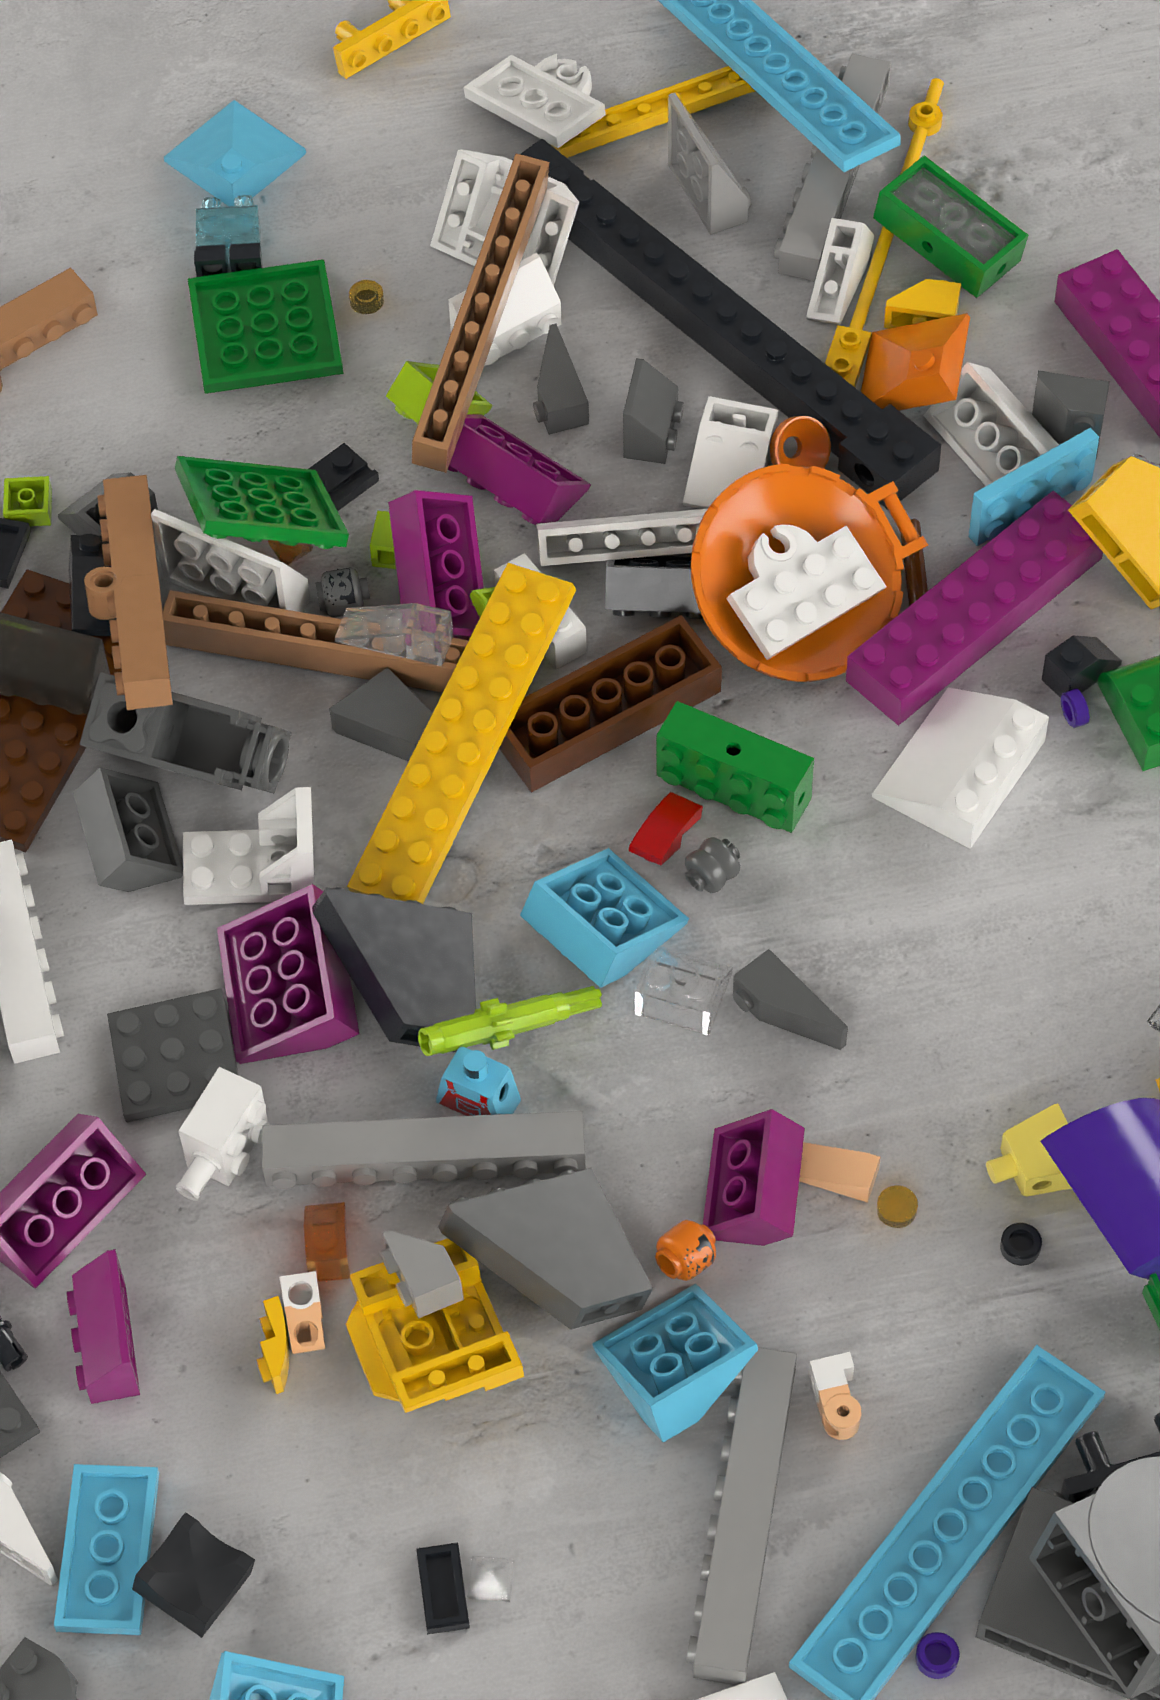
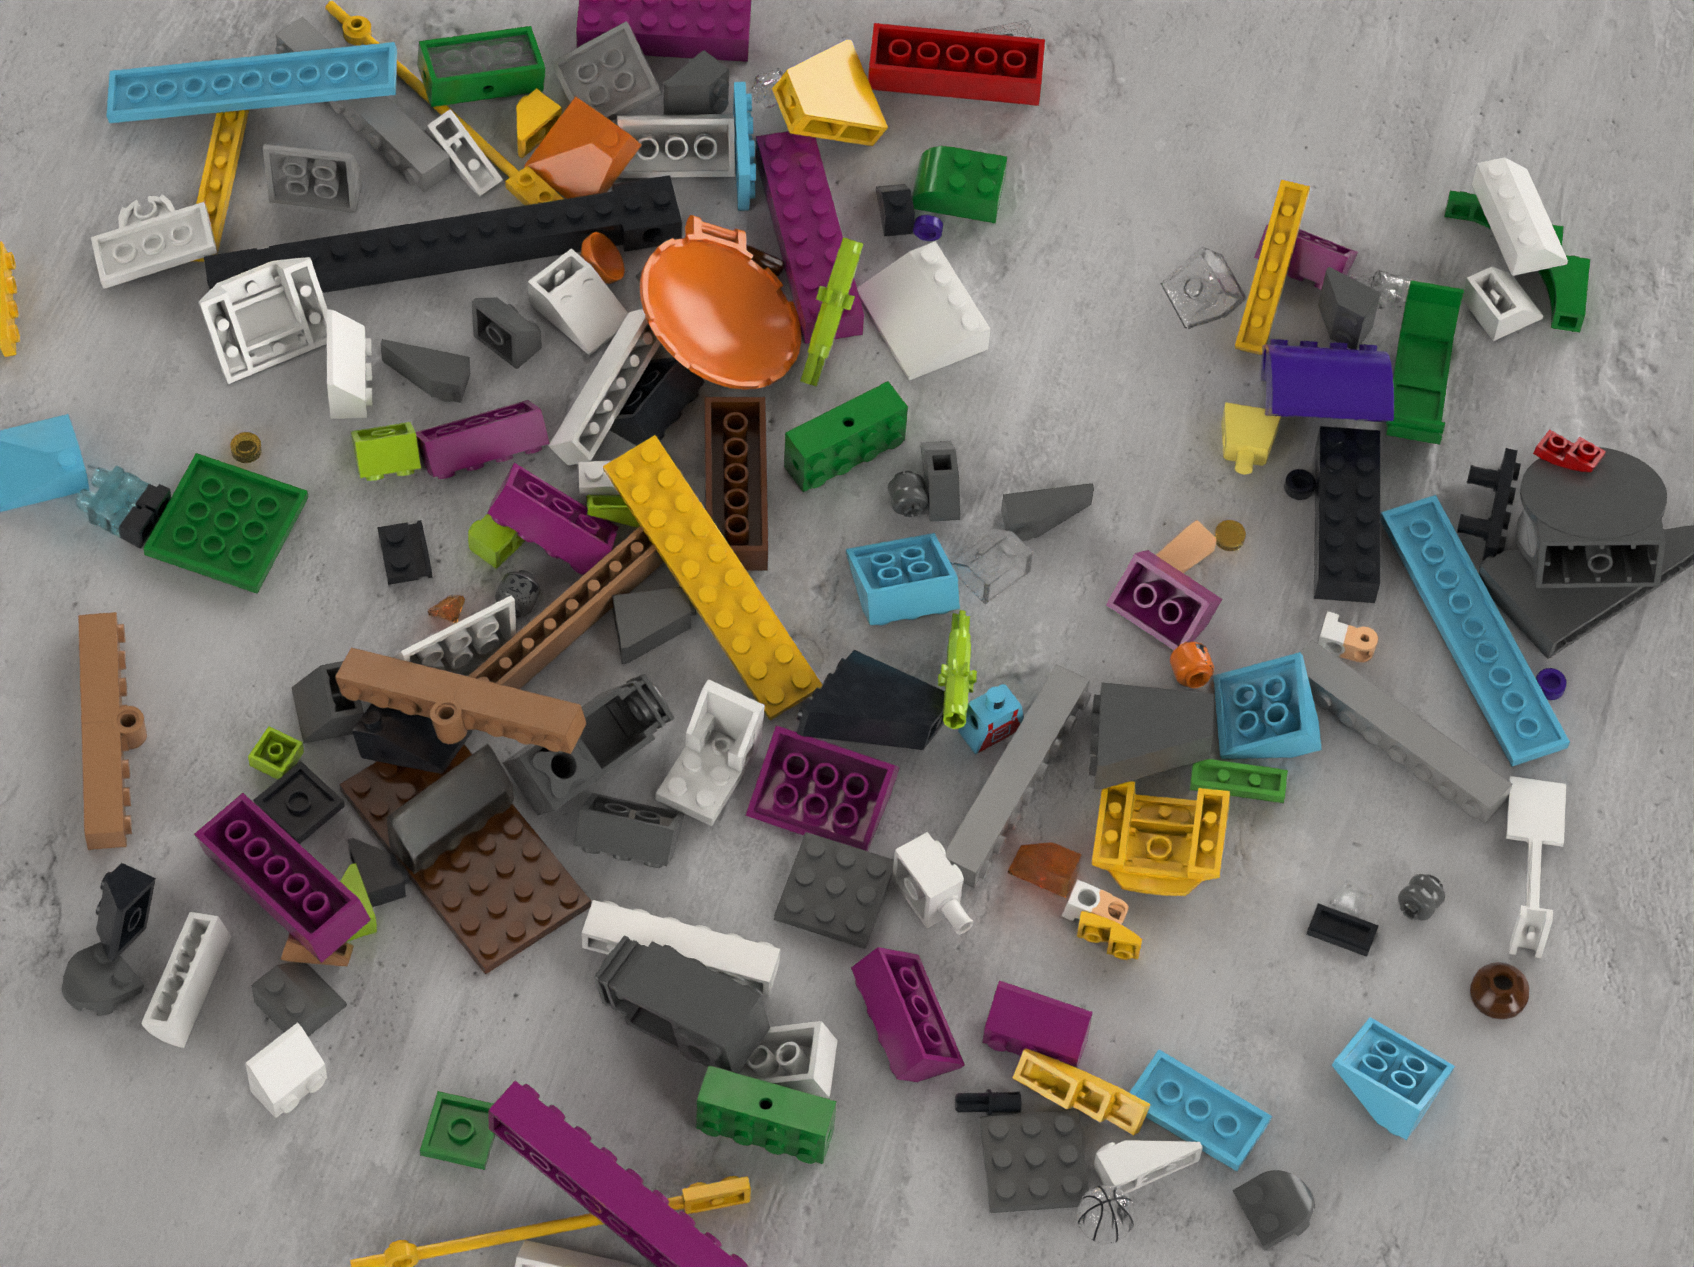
camera: 65 degrees left, 0 degrees up
(57, 1405) = (1081, 1090): none -> yellow slope
(193, 1575) = (1254, 1063): black brick -> none
(261, 502) = (427, 590): green plate -> none
(399, 630) = (605, 563): clear slope -> none
(424, 1273) = (1126, 812): light grey slope -> none
(480, 313) = (368, 366): medium nougat brick -> none
(532, 1650) = (1421, 897): none -> dark grey piece
(568, 1378) = (1240, 779): none -> bright green plate
(663, 829) = (858, 506): red slope -> none
(755, 883) = (941, 480): none -> dark grey slope
(802, 586) = (731, 316): white plate -> none
(880, 657) = (834, 300): none -> lime piece
(1005, 1310) = (1347, 514): none -> black brick
(1027, 331) = (608, 73): none -> light grey plate

